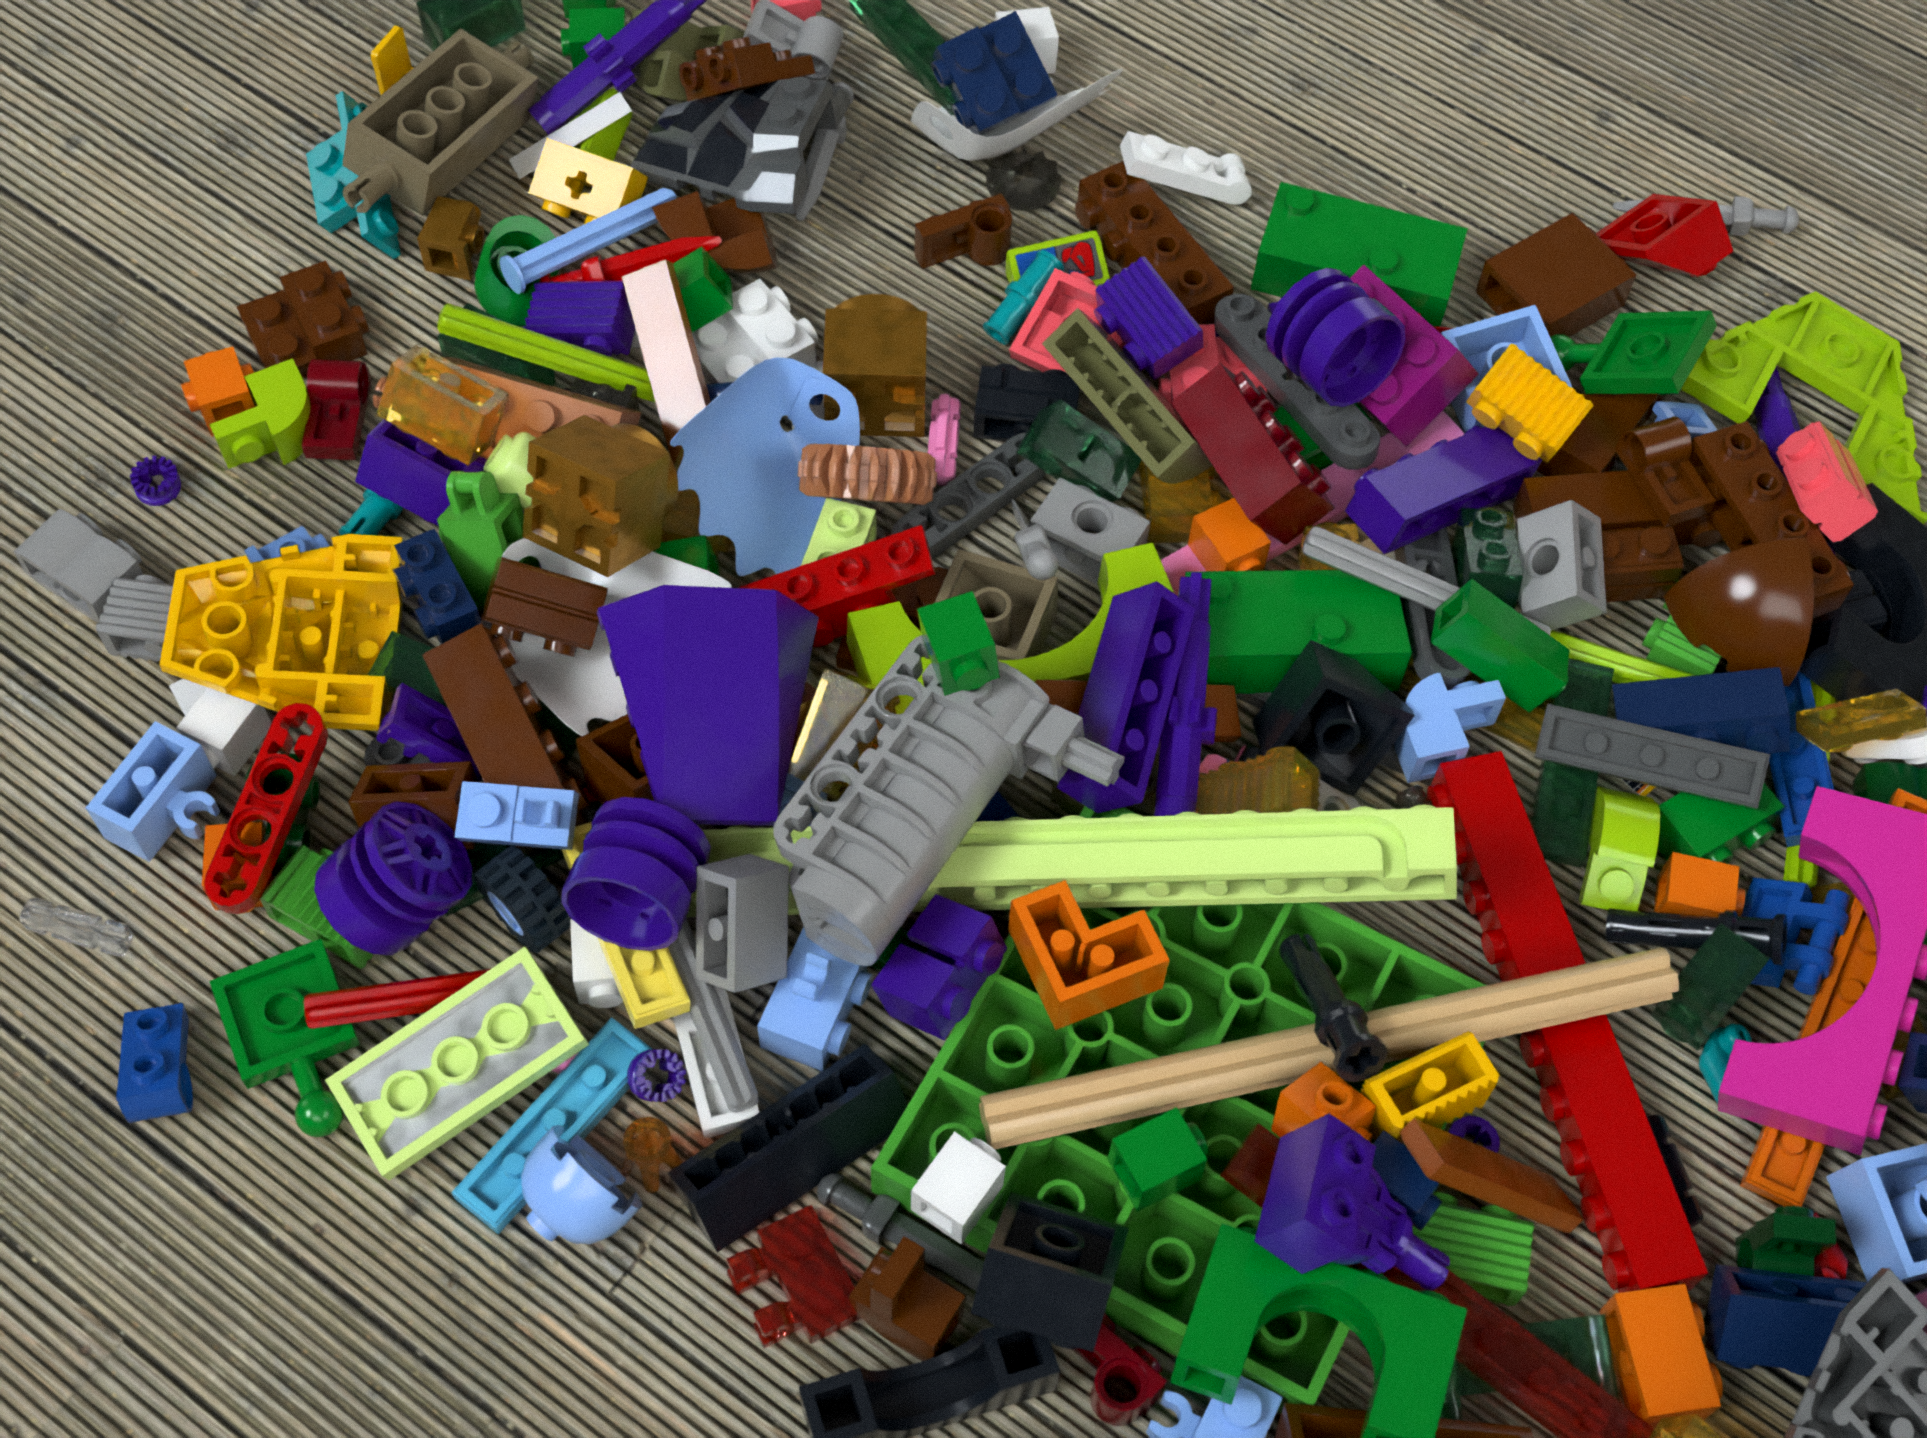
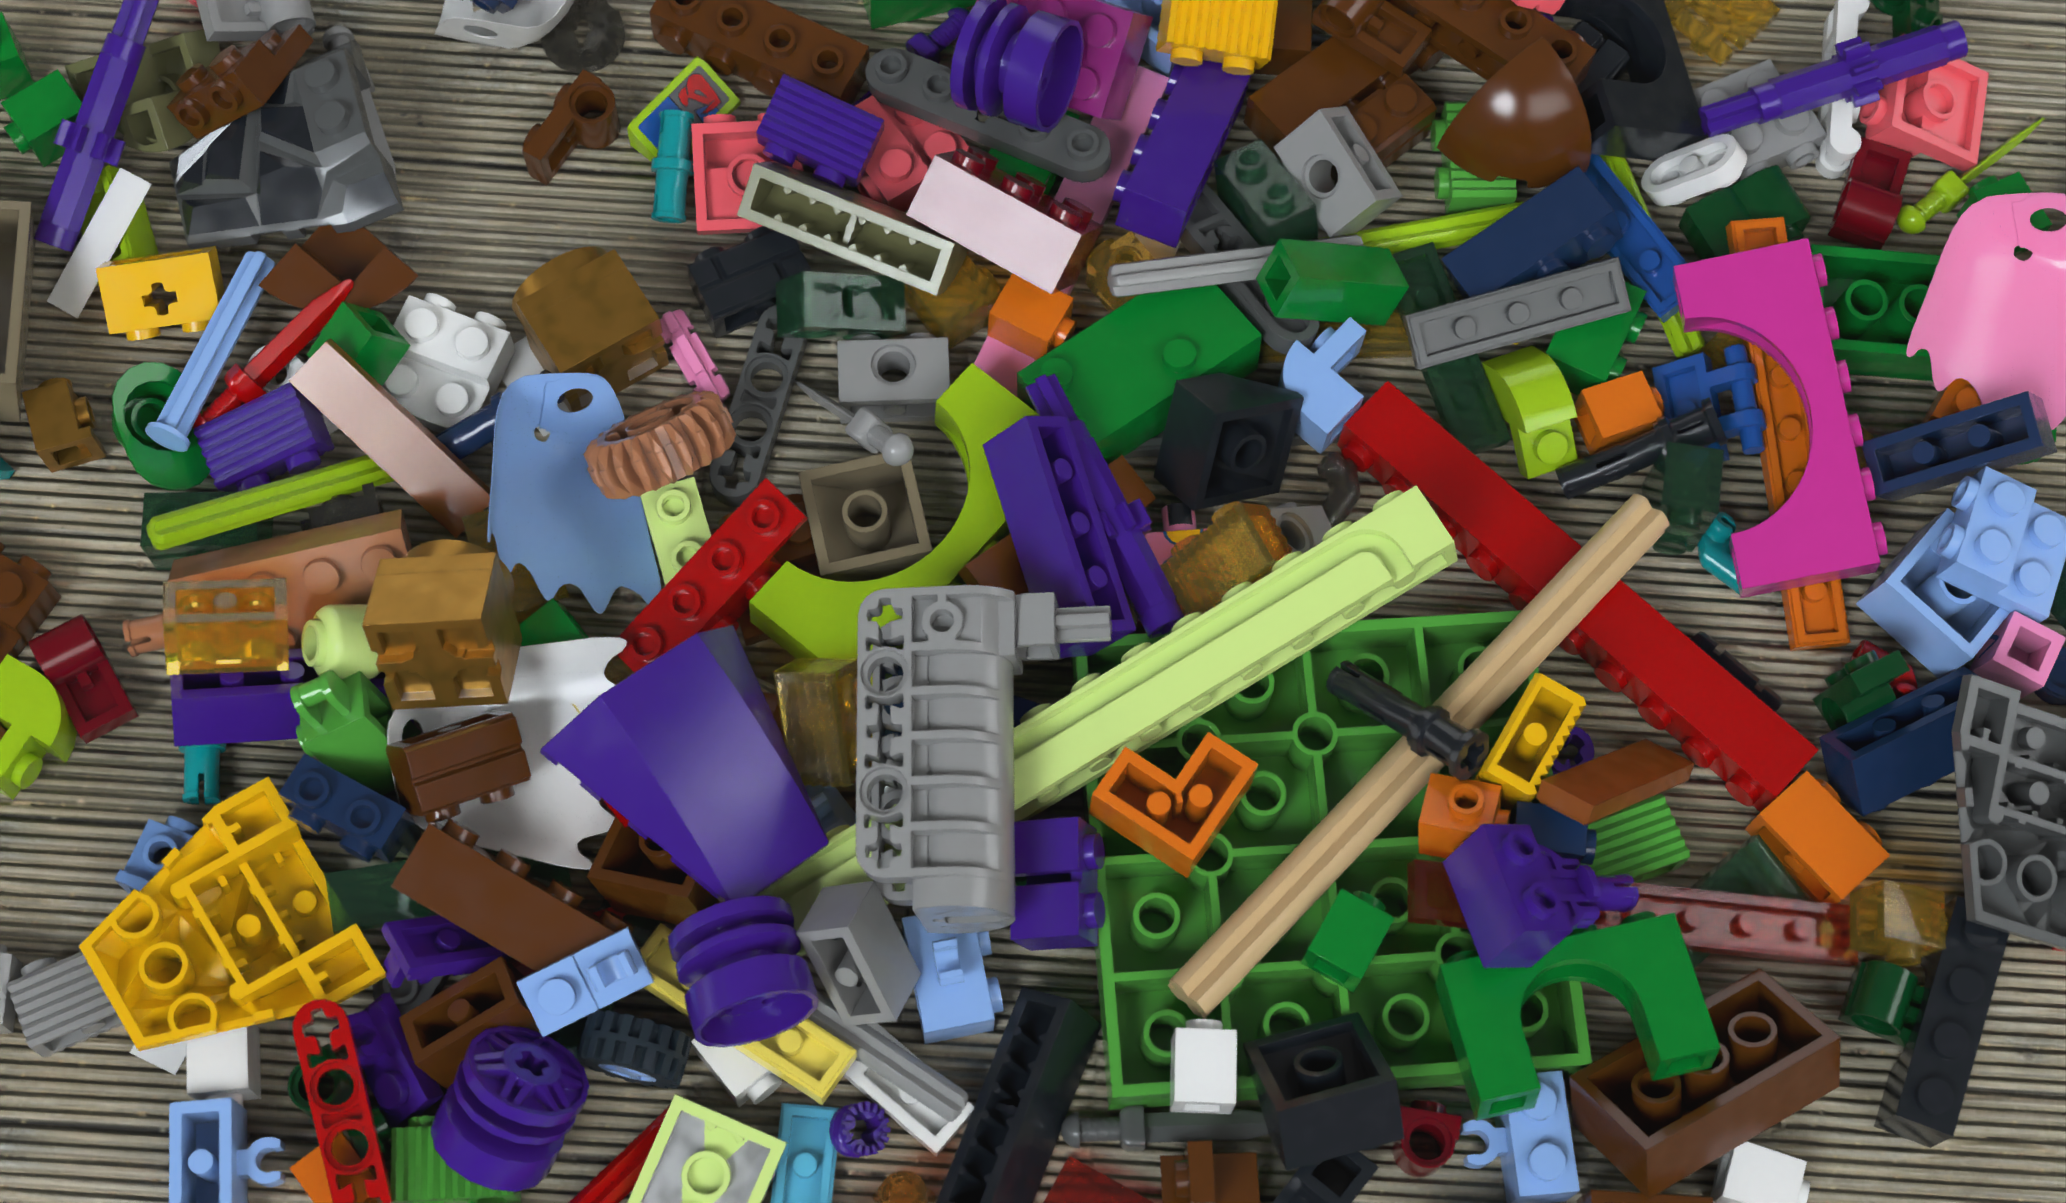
camera: 35 degrees left, 10 degrees up
(333, 818) = (386, 1059): none -> dark purple plate
(958, 643) = (914, 595): green brick -> none
(1860, 720) = (1667, 174): clear yellow plate -> none

